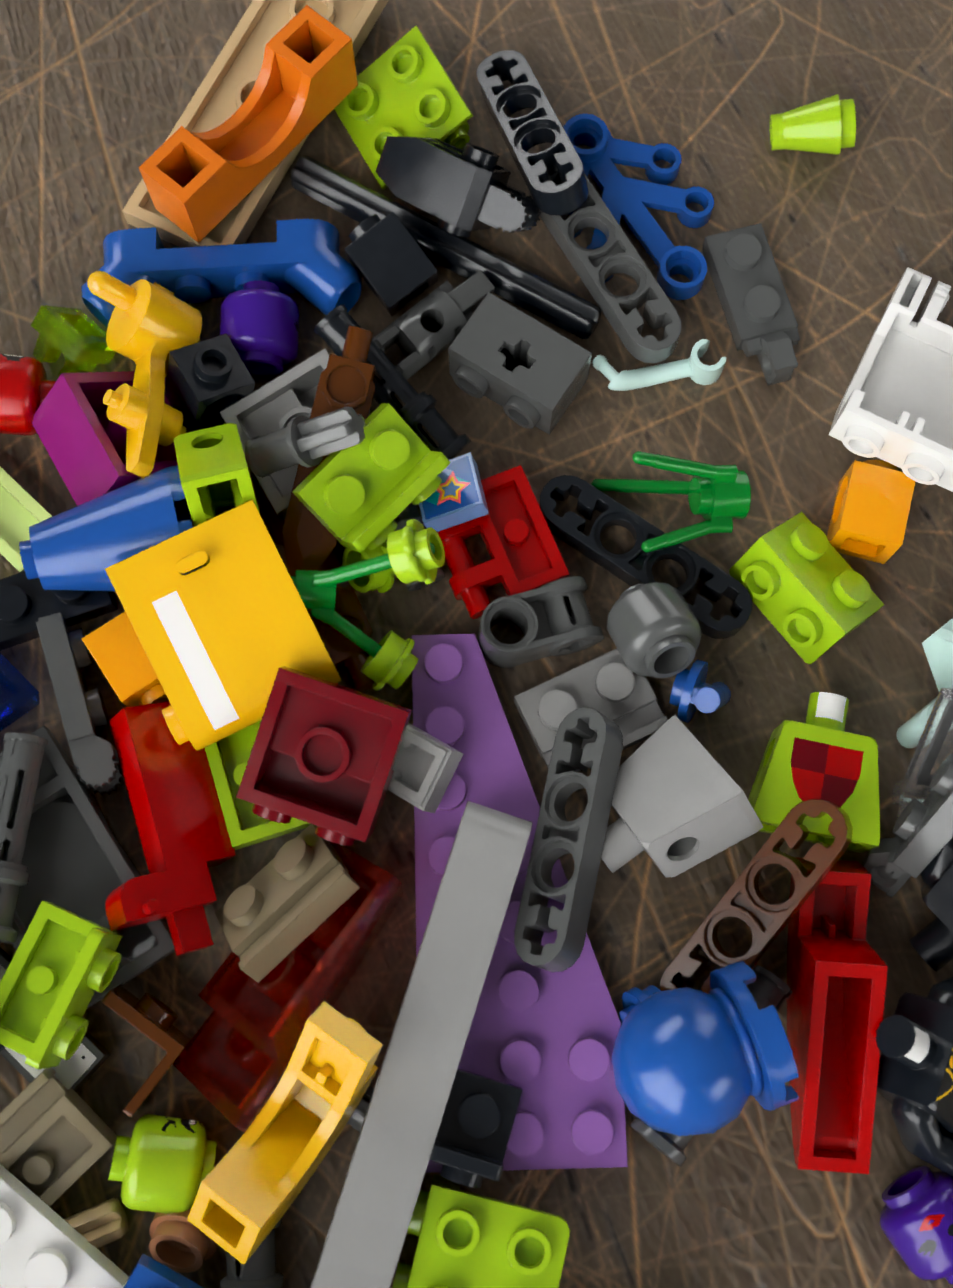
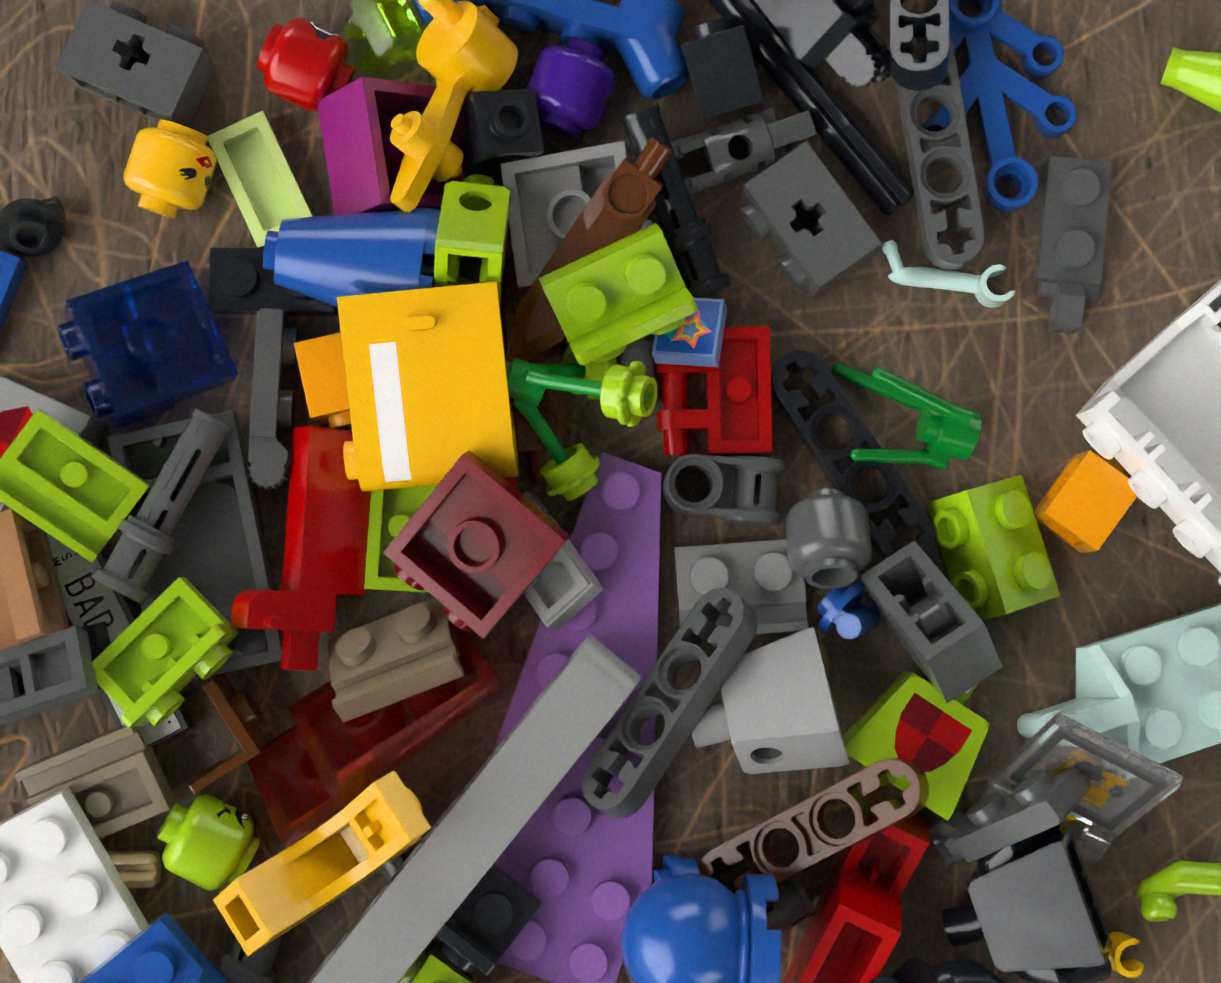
camera: 25 degrees right, 10 degrees up
(179, 1242) = (197, 911): nougat plate -> none
(305, 441) = (567, 237): dark grey axle -> none
(783, 664) = (932, 621): none -> dark grey brick

